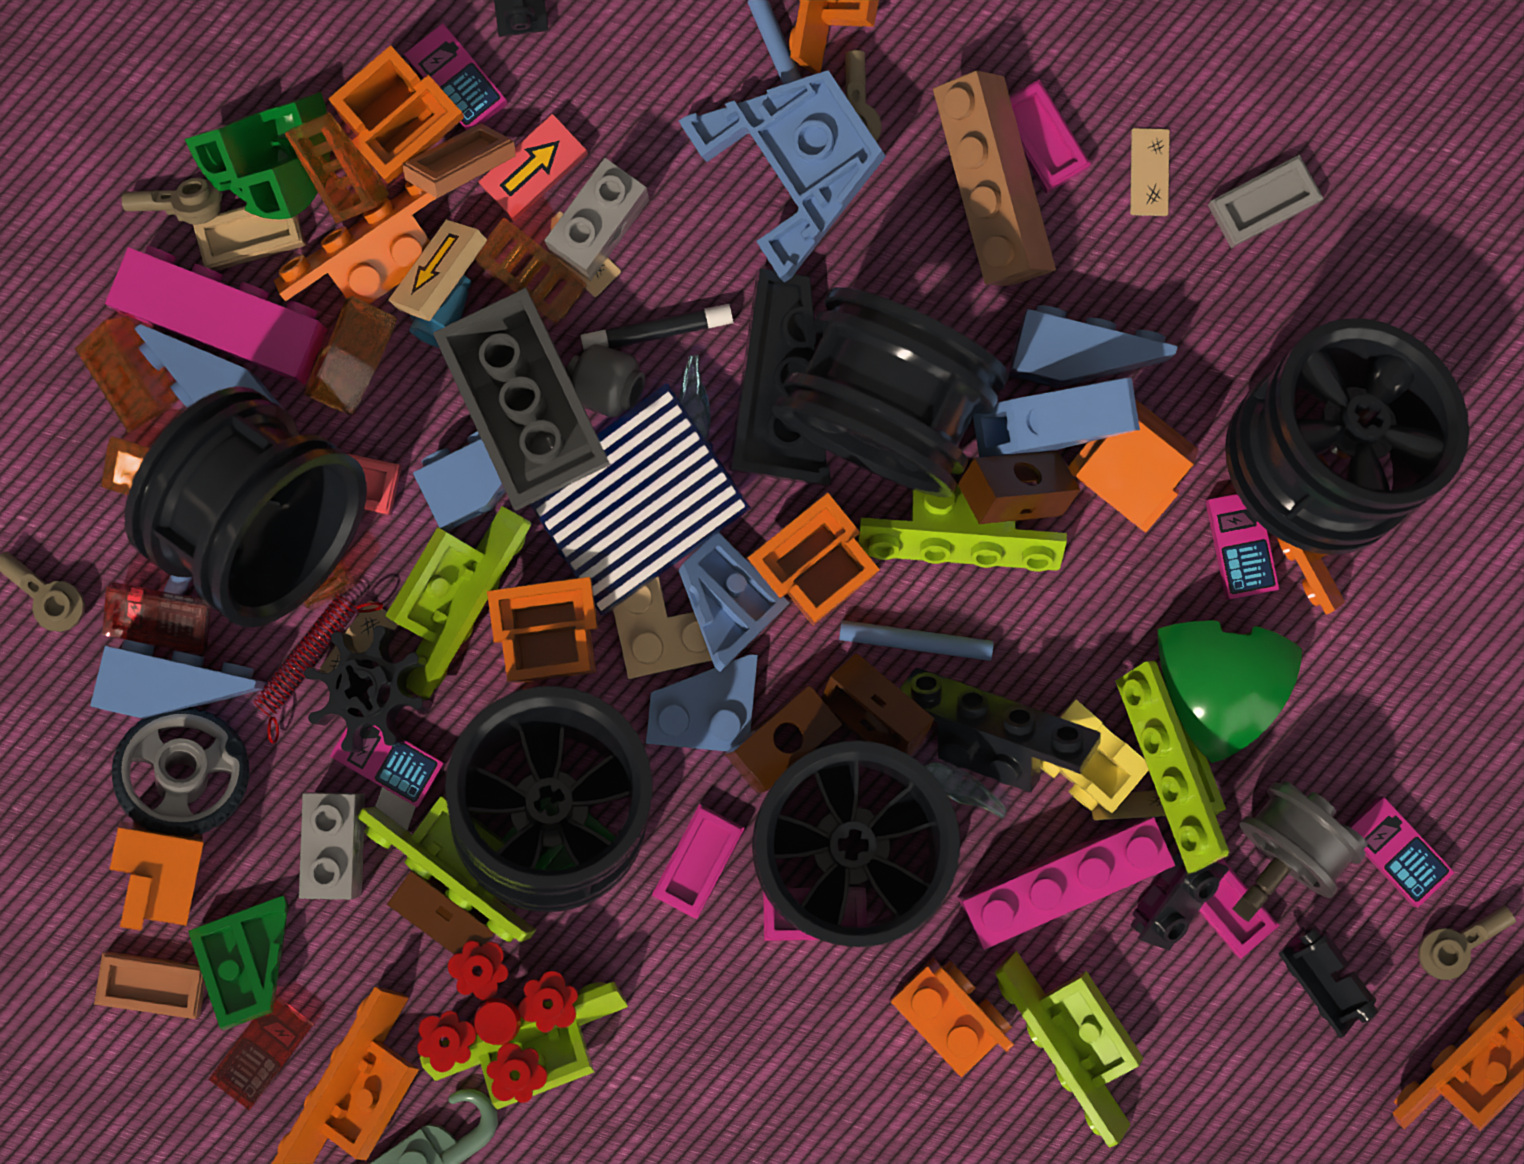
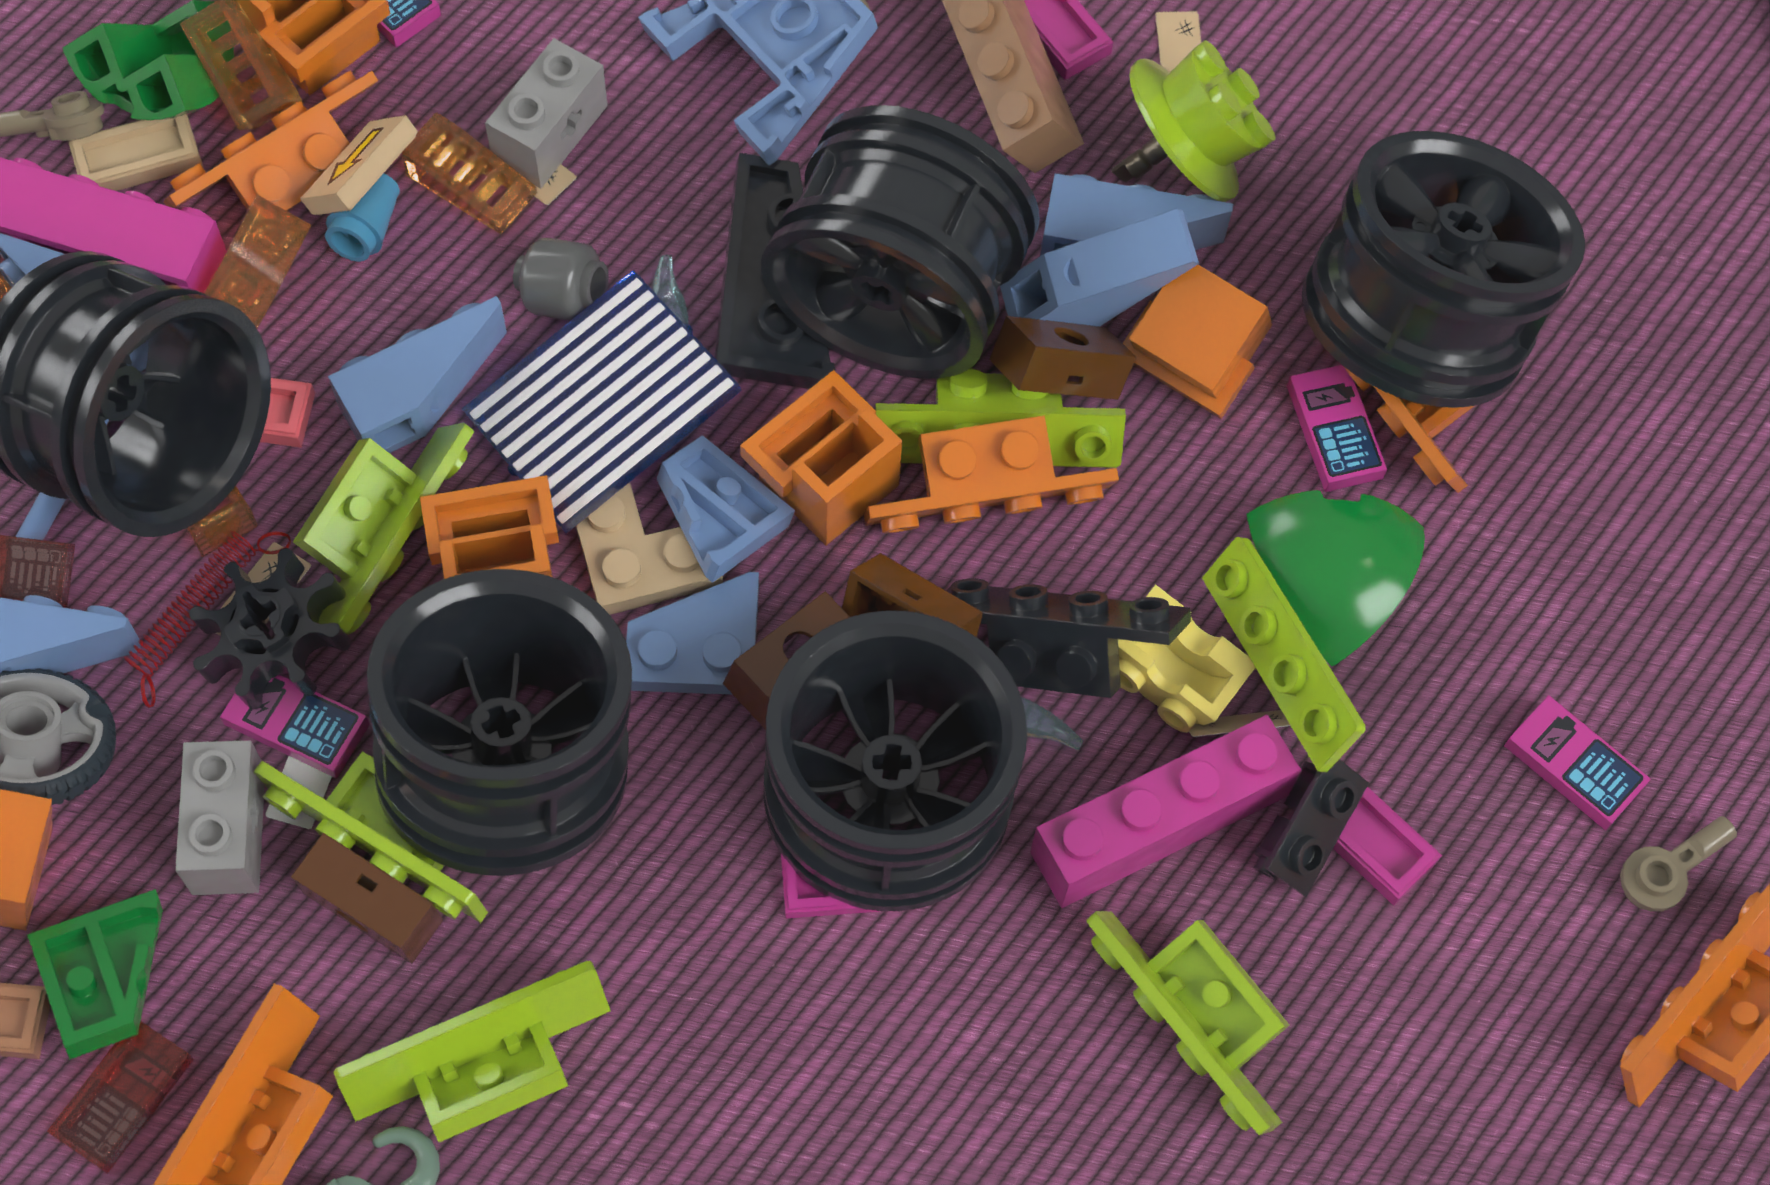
camera: 10 degrees left, 20 degrees down
(459, 160) = (383, 54): nougat tile -> none
(497, 1021) = (437, 1014): red plant -> none
(521, 399) = (457, 277): dark grey slope -> none
(538, 166) = (471, 72): coral tile -> none
(660, 327) = (637, 225): black bar -> none
(698, 861) = (695, 823): dark pink tile -> none
(916, 640) = (954, 550): medium blue bar -> none
(946, 582) = (987, 468): none -> orange bracket
(949, 1018) = (1039, 981): orange bracket -> none
(1154, 268) = (1199, 120): none -> lime piece
(1265, 201) = (1315, 74): light grey tile -> none
(1300, 842) = (1452, 739): flat silver wheel -> none
(1314, 963) = (1531, 937): black hinge -> none

